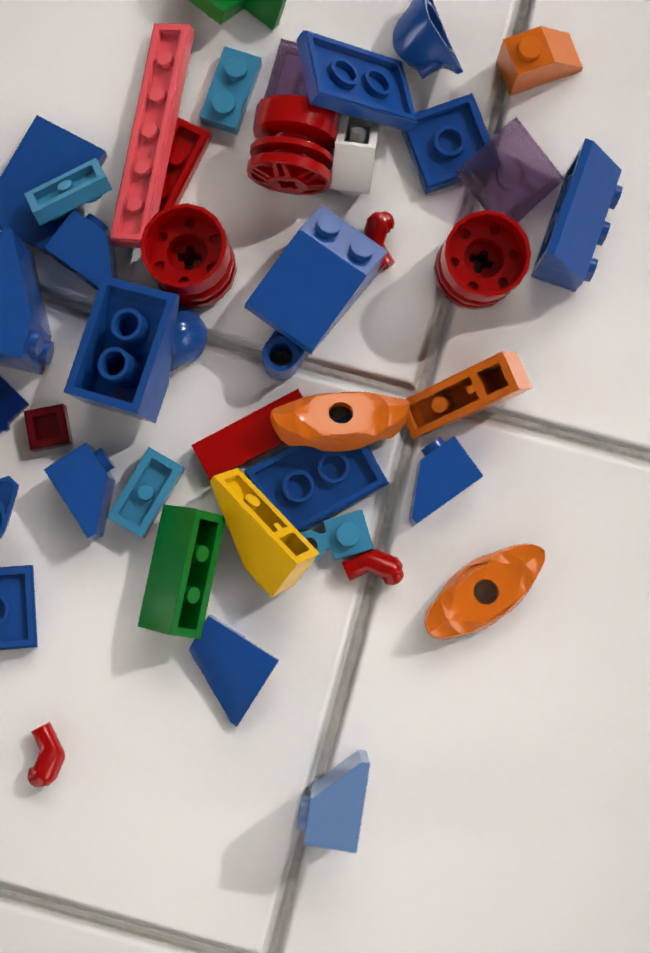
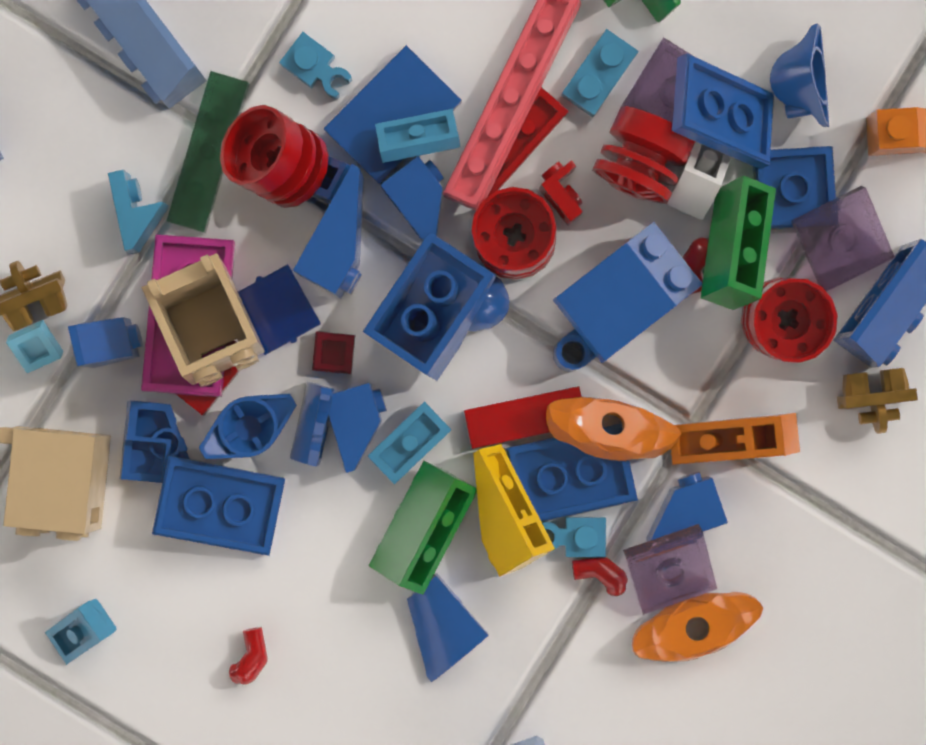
camera: 20 degrees right, 5 degrees up
(46, 513) = (311, 424): none -> blue slope
(231, 214) = (562, 199): none -> red bracket
(410, 202) = (738, 243): none -> green brick
(440, 539) = (670, 569): none -> clear purple tile
(604, 303) = (894, 390): none -> pearl gold hips

